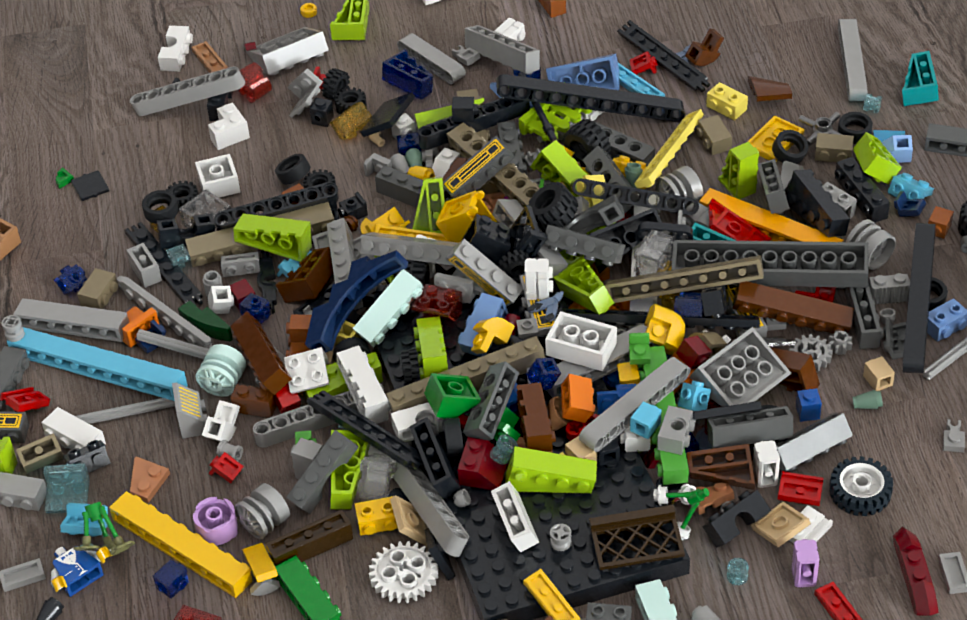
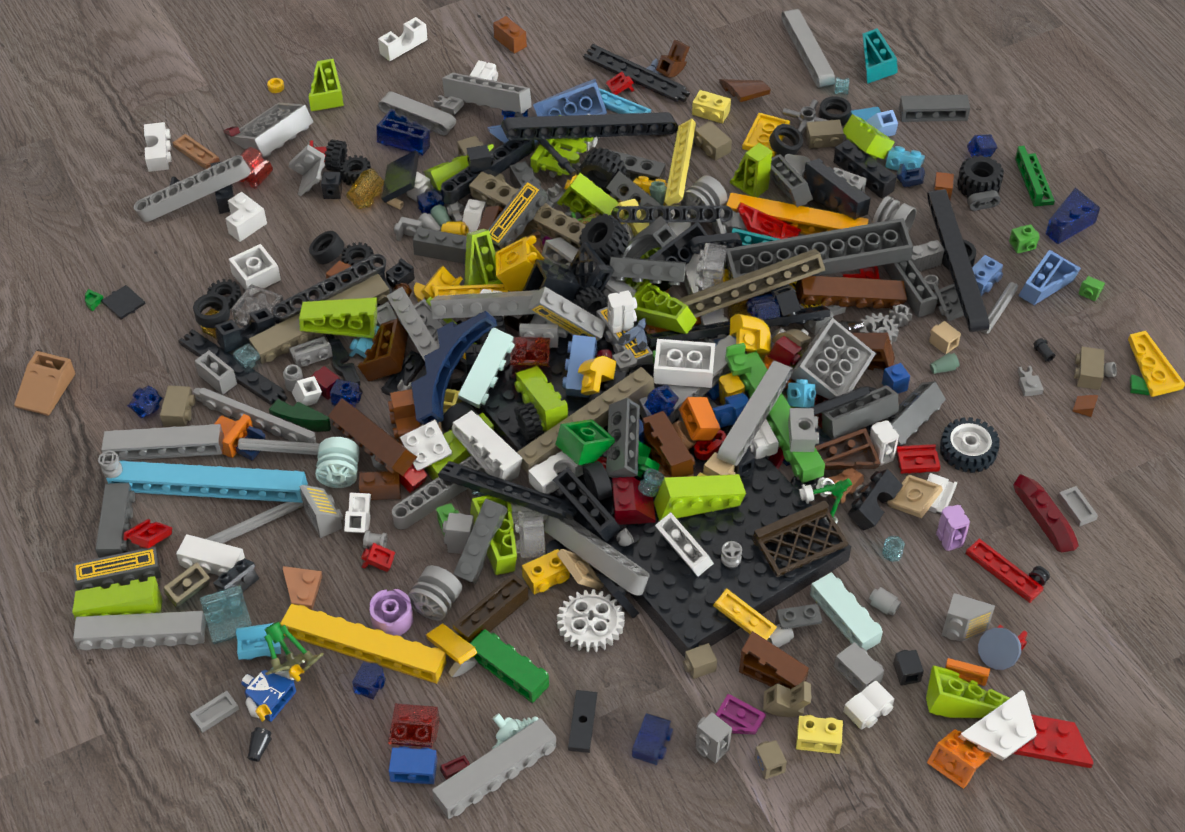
camera: 20 degrees left, 5 degrees up
(645, 420) = (772, 426): medium azure brick -> none

